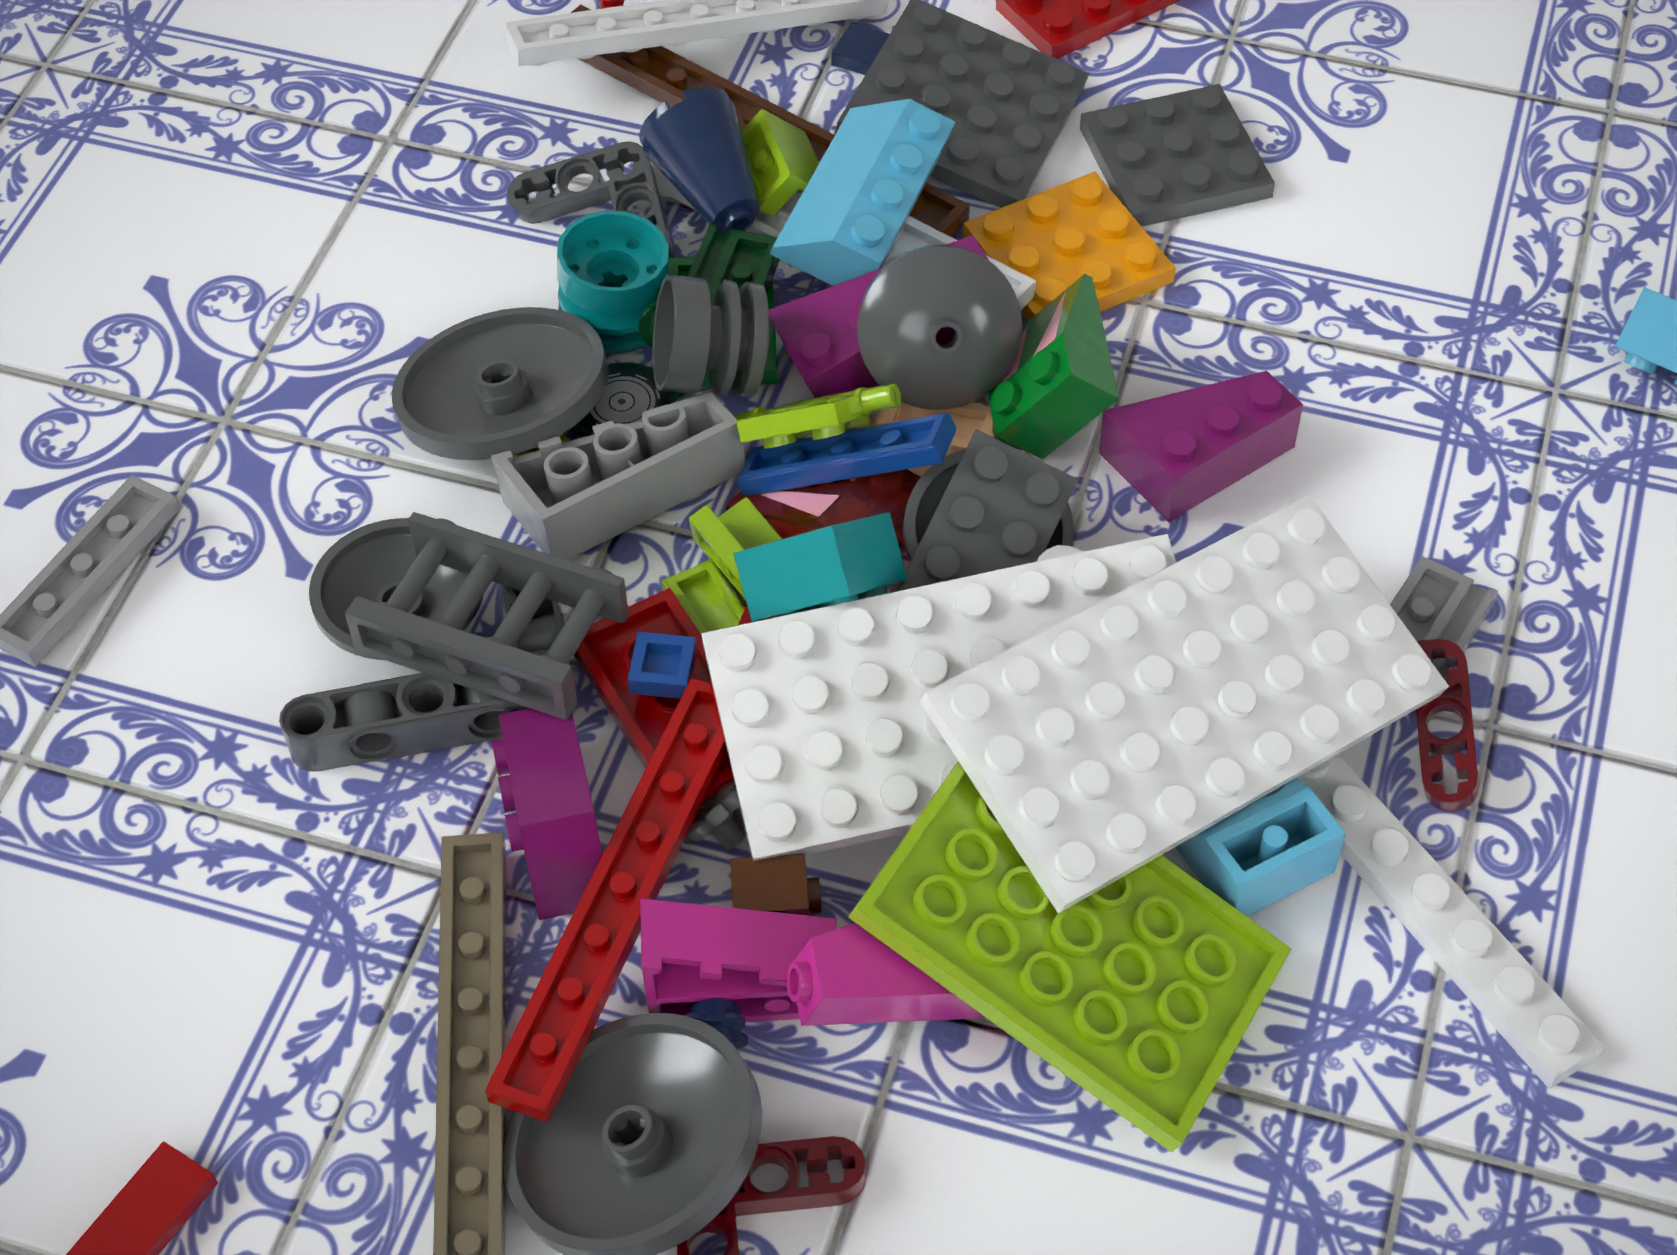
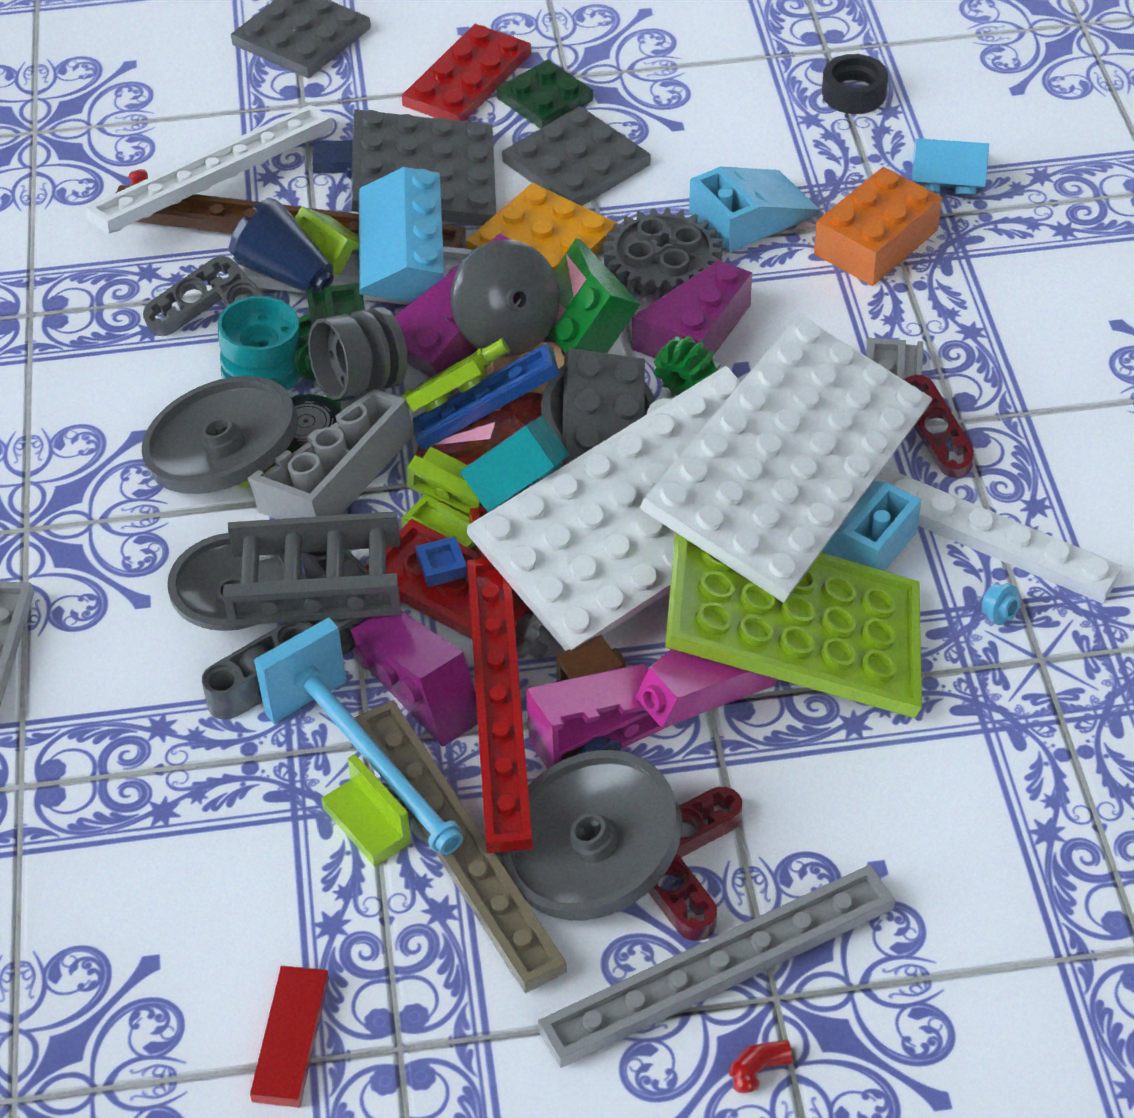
camera: 25 degrees left, 5 degrees down
(384, 981) = (368, 814): none -> lime panel
(401, 752) = (309, 670): none -> medium azure tile
(1140, 505) = (684, 364): none -> green gear
(1185, 51) = (544, 93): none -> dark green plate
(1208, 327) = (660, 251): none -> dark grey gear
(1366, 300) = (747, 204): none -> medium azure slope
(1390, 1029) = (1001, 603): none -> medium azure plate
(1529, 394) = (877, 225): none -> orange brick
(1614, 199) = (857, 99): none -> black tyre

